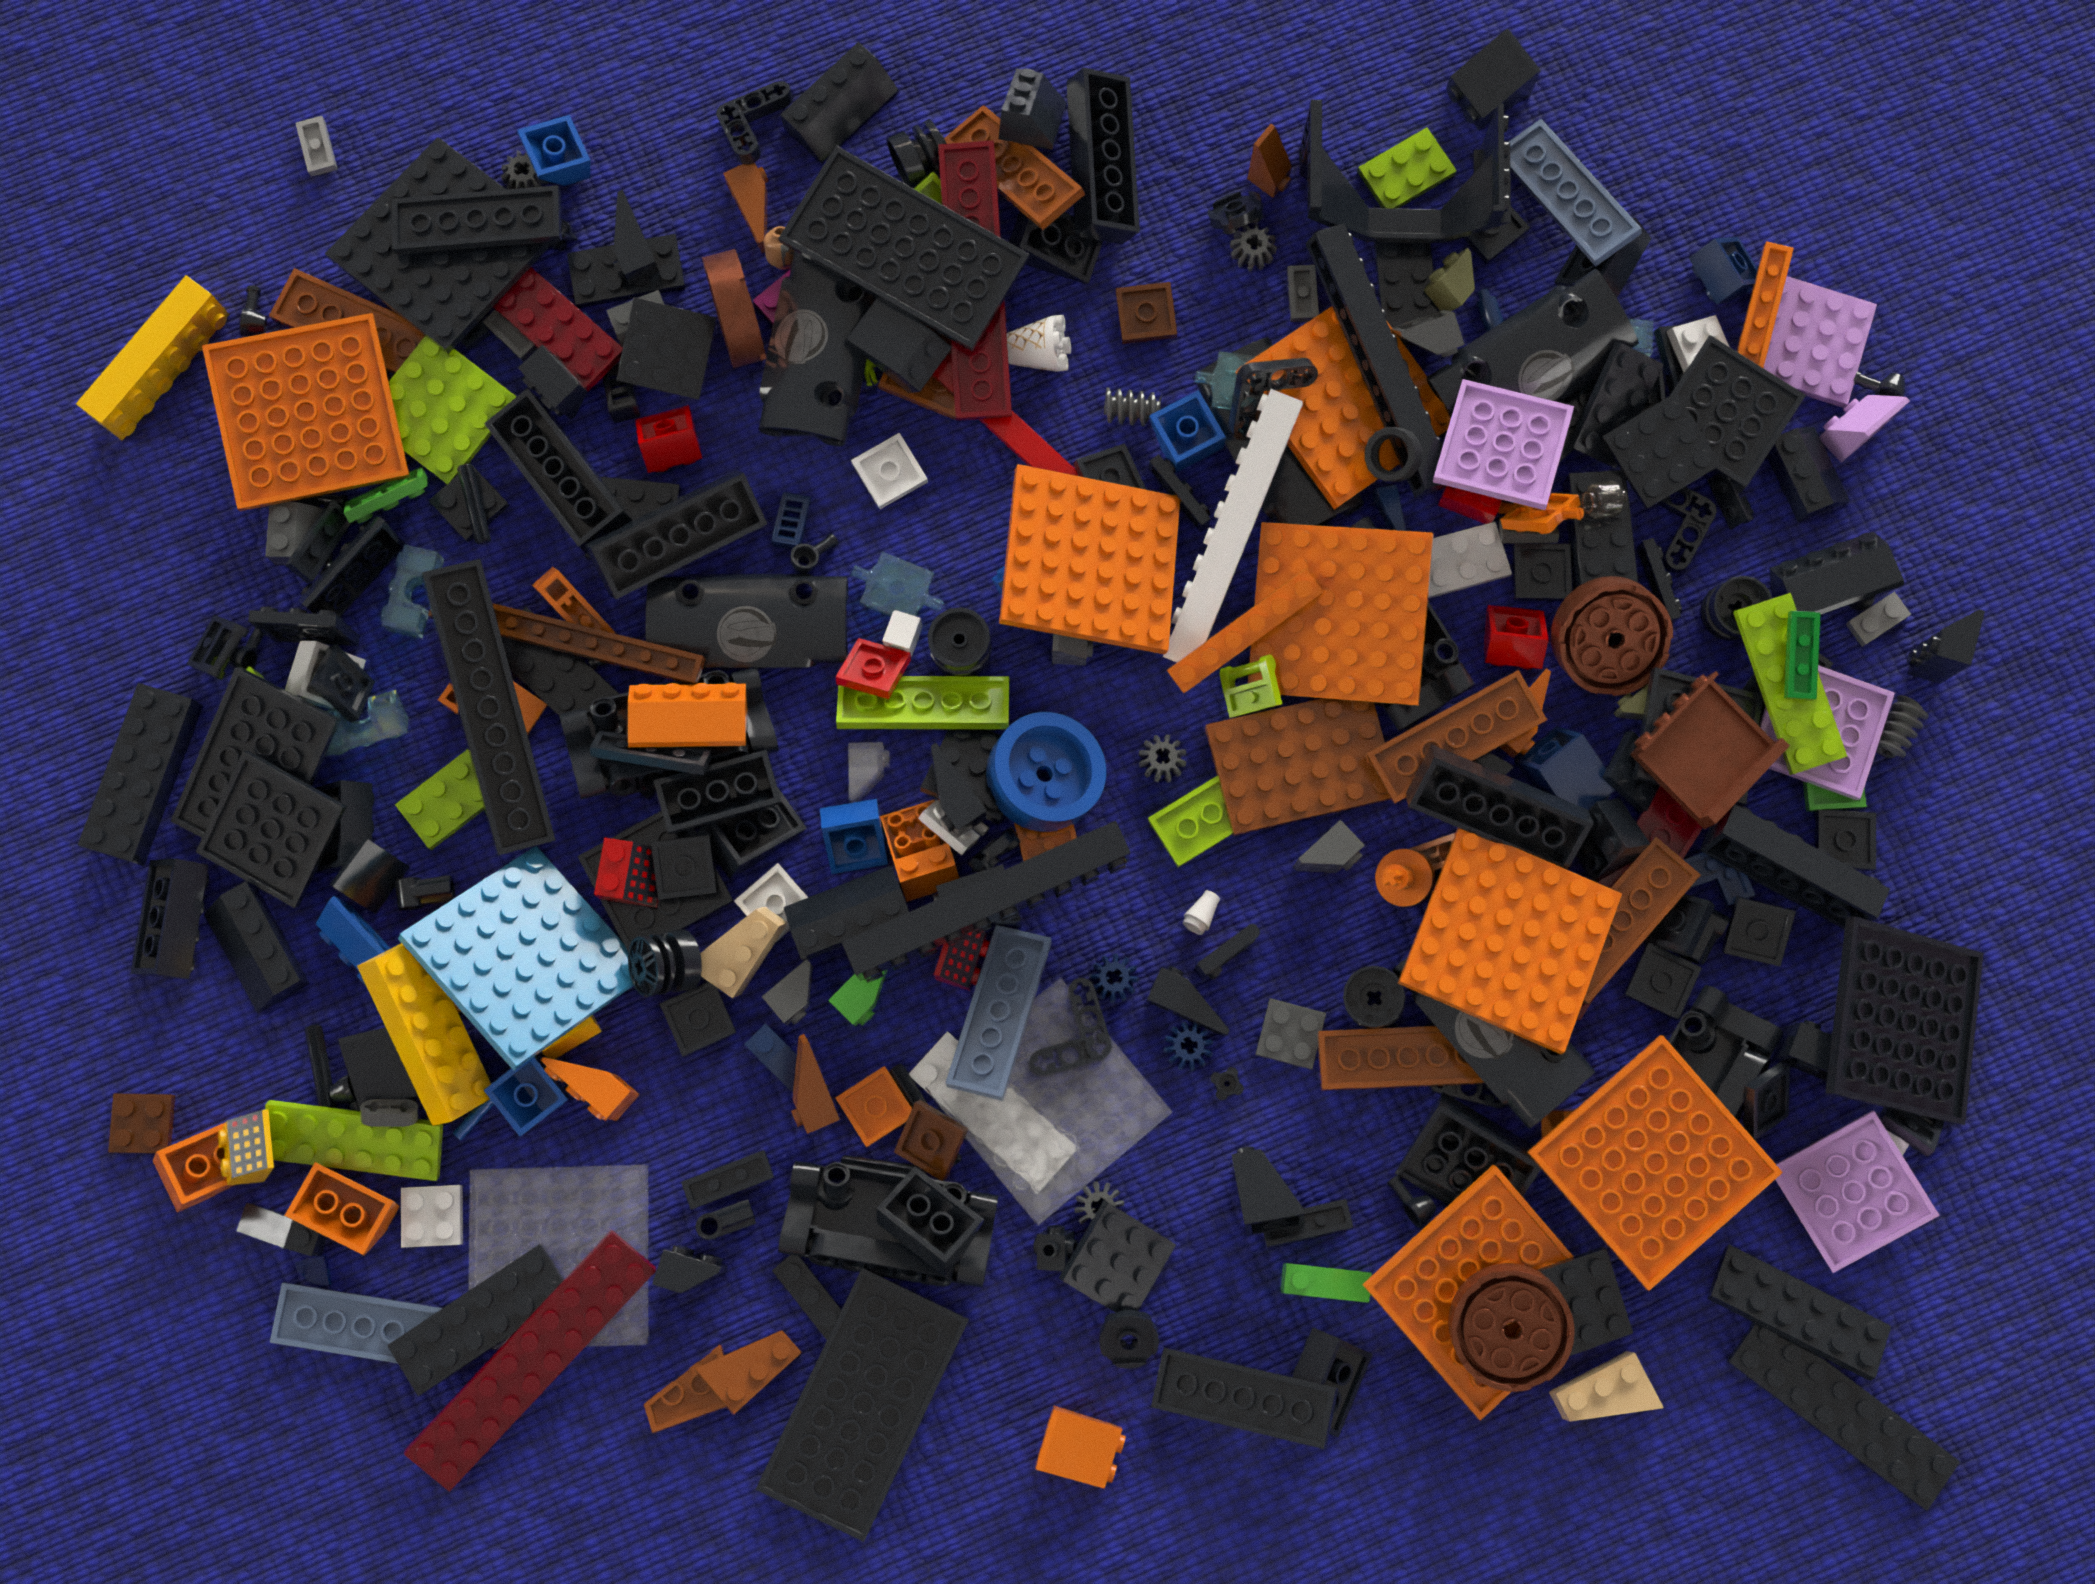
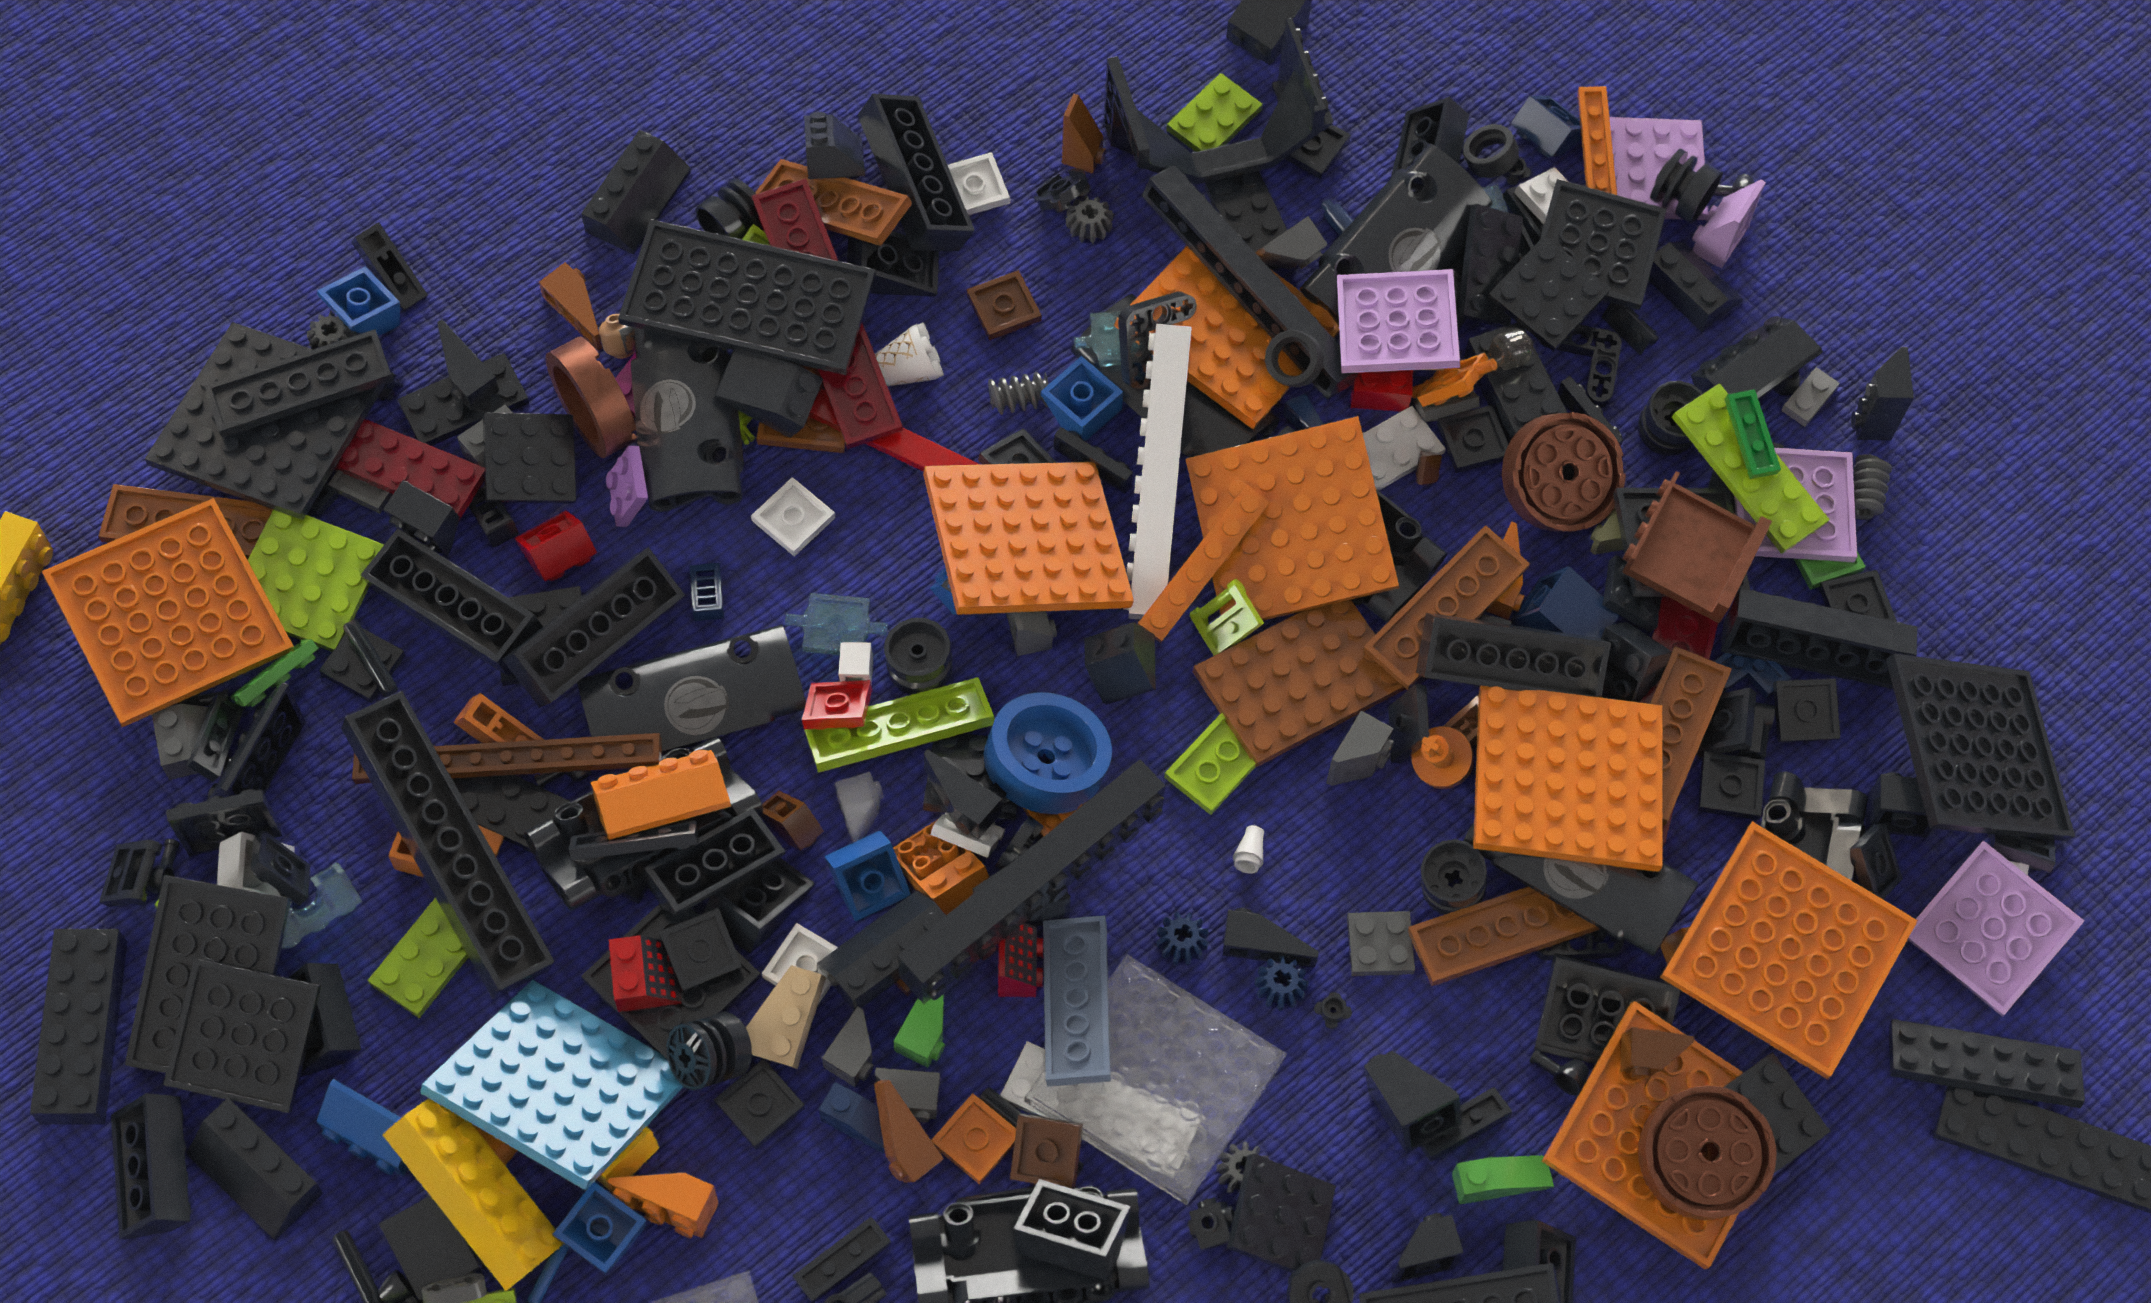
camera: 20 degrees left, 15 degrees down
(251, 321) = (79, 543): black bar -> none
(316, 146) = (104, 364): light grey plate -> none
(369, 875) = (362, 1055): black slope -> none
(401, 614) = (324, 788): clear light blue arch -> none
(416, 892) = (416, 1063): black piece -> none
(594, 118) = (388, 265): none -> black slope
(743, 115) = (564, 207): black beam -> none
(746, 401) = (627, 486): none -> medium lavender plate
(800, 764) = (791, 820): none -> reddish brown slope
(810, 554) = (733, 619): black bar -> none
(832, 1049) = (916, 1089): none -> dark grey slope
(1082, 1044) = (1171, 1009): black beam -> none
(1140, 703) = (1121, 662): none -> black slope
(1151, 756) = (1160, 702): dark grey gear -> none
(1160, 181) = (979, 183): none -> white plate
(1212, 964) = (1289, 877): black container -> none
(1235, 1330) = (1431, 1249): none -> black slope
(1302, 293) = (1150, 247): dark grey plate -> none
(1383, 838) = (1410, 723): none -> black plate
(1452, 282) = (1293, 199): olive slope -> none
(1488, 589) = (1428, 467): none -> reddish brown slope
(1492, 1220) = (1650, 1051): none -> reddish brown slope
(1515, 637) = (1470, 505): red slope -> none
(1570, 193) = (1381, 93): sand blue plate -> none
(1607, 1390) = (1826, 1197): tan wedge -> none
(1653, 266) = (1494, 165): none -> black tyre
(1675, 299) = (1522, 172): none -> black plate
(1833, 375) = (1690, 188): none -> black wheel

